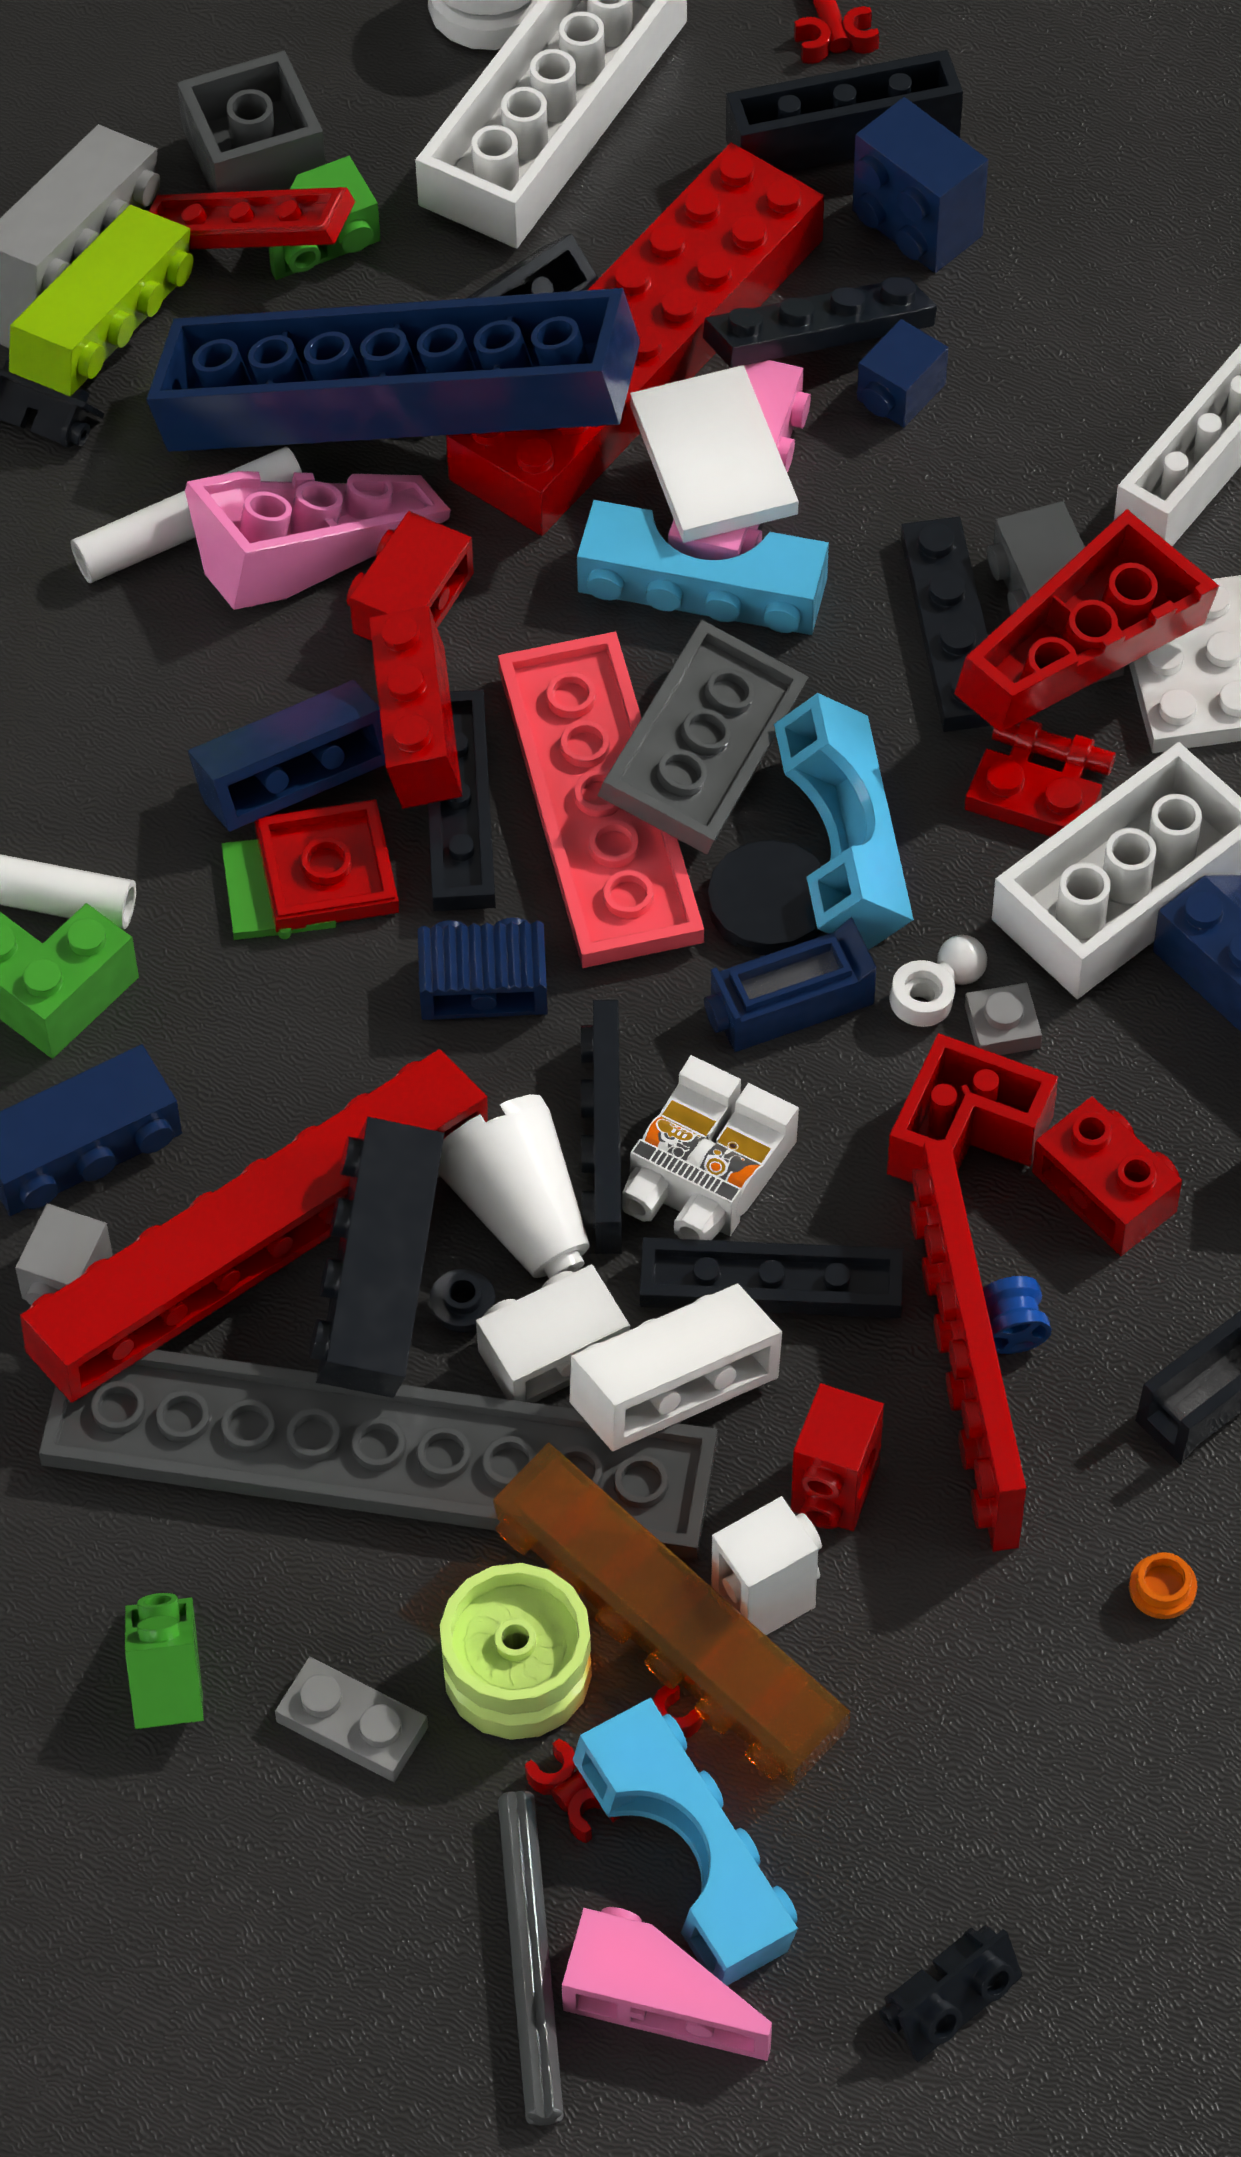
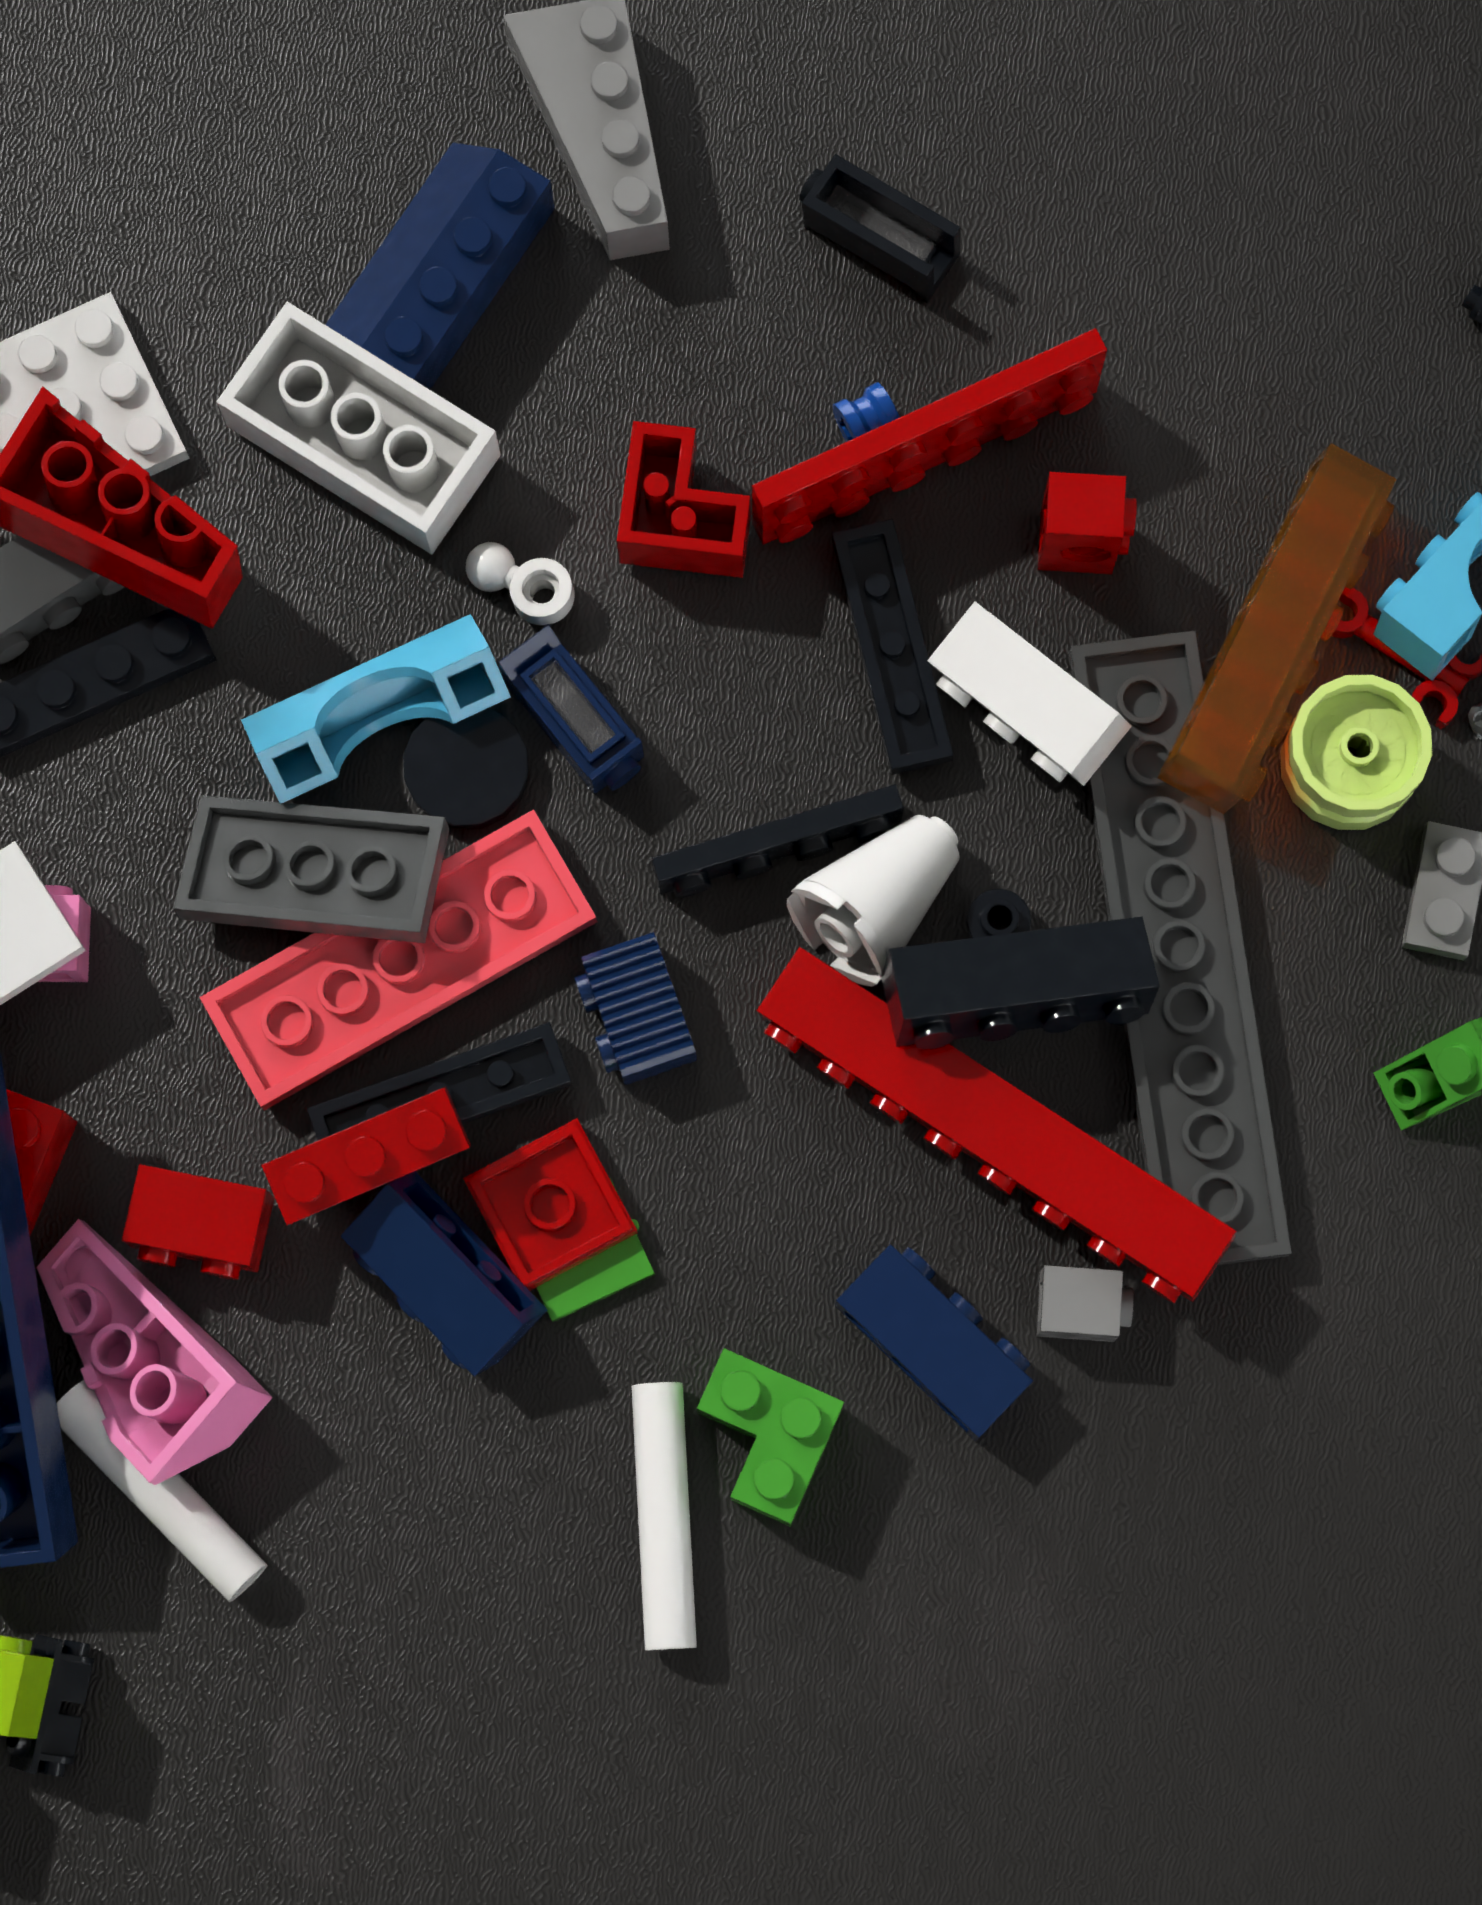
camera: 105 degrees left, 20 degrees up
(533, 1338) = (1017, 823): white brick -> none
(709, 1152) = (780, 737): white hips -> none
(767, 1565) = (1212, 553): white brick -> none
(768, 586) = (98, 1015): medium azure arch -> none
(1003, 1019) = (543, 515): light grey plate -> none
(1031, 794) = (277, 544): red plate -> none
(1107, 1175) = (697, 369): red brick -> none
(1163, 1586) = (1093, 235): orange plate -> none

